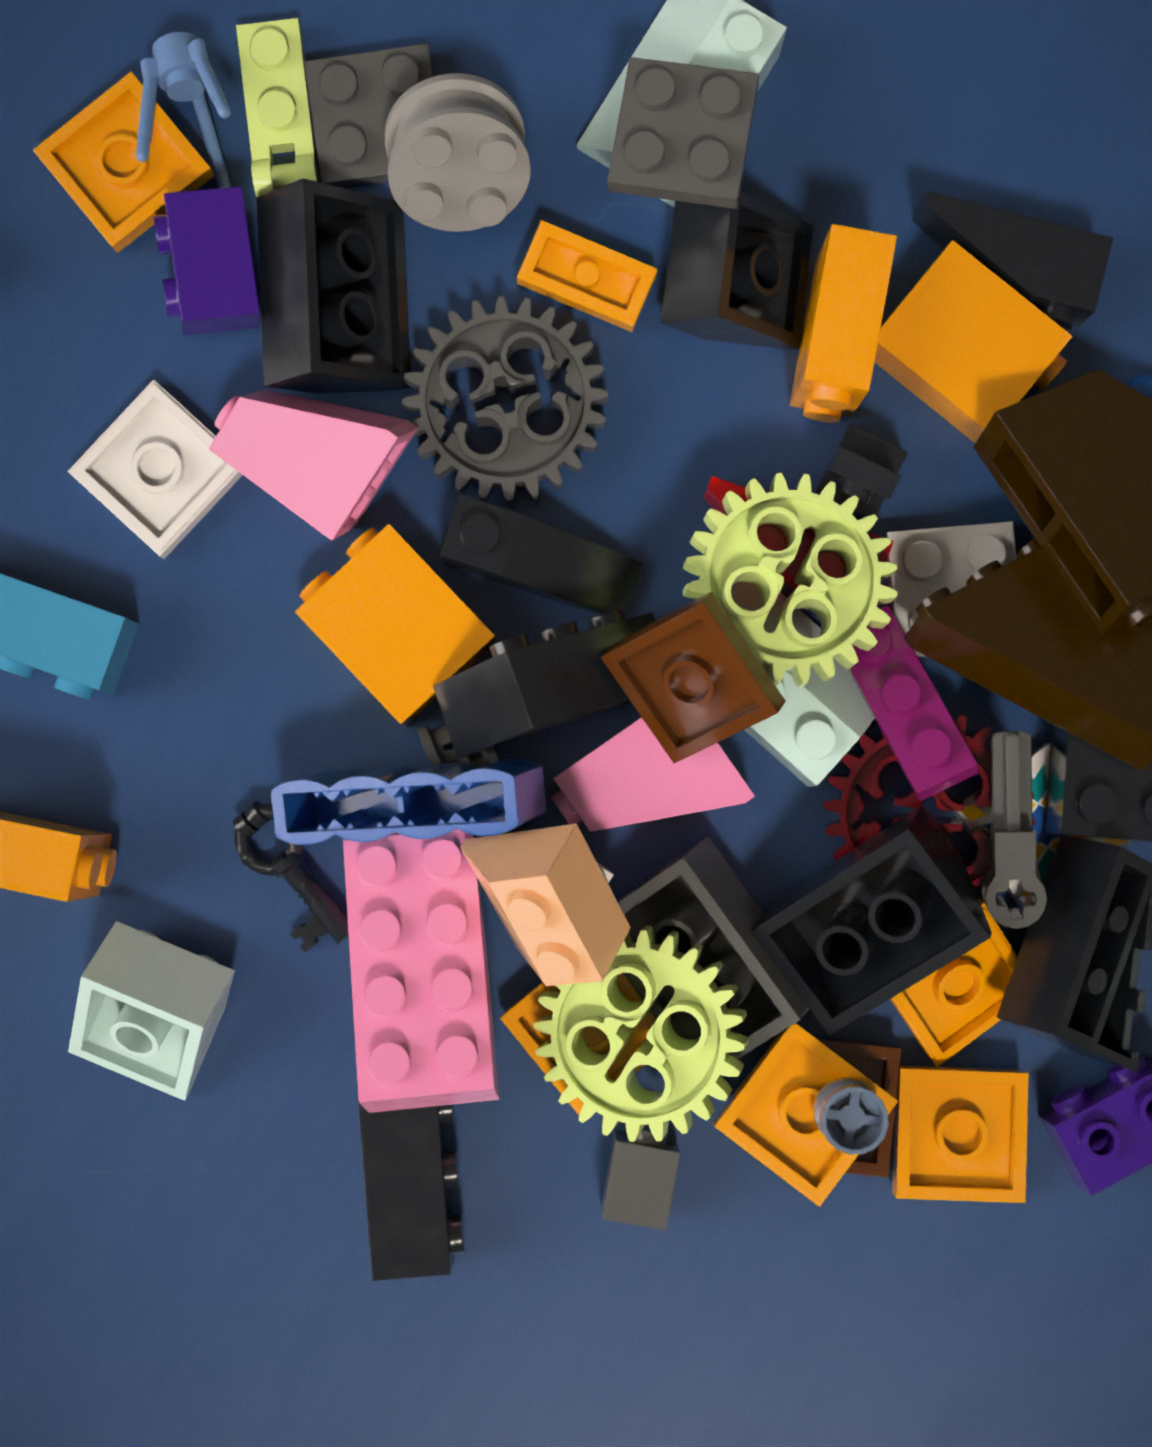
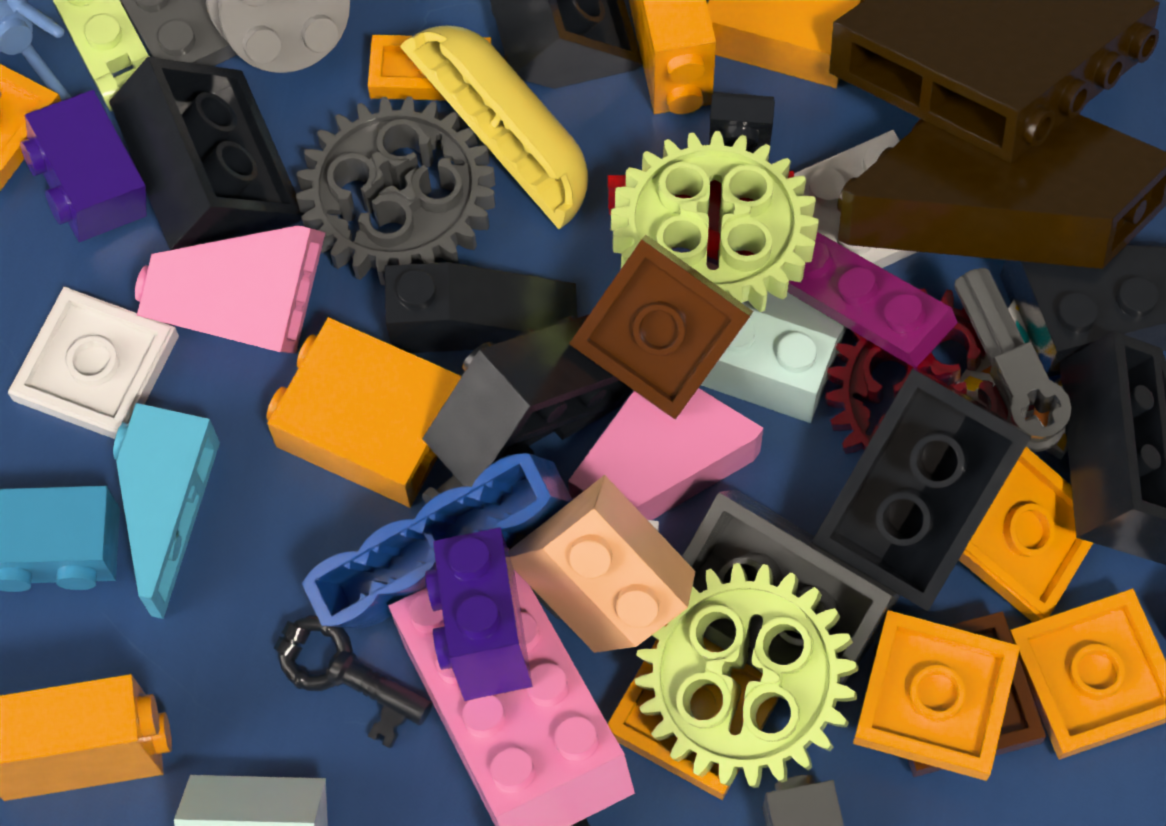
camera: 15 degrees left, 20 degrees down
(177, 630) = (162, 480): none -> medium azure slope
(413, 907) = (480, 614): none -> dark purple brick
(636, 365) = (504, 116): none -> light yellow brick
(857, 1125) = (981, 649): sand blue wheel -> none

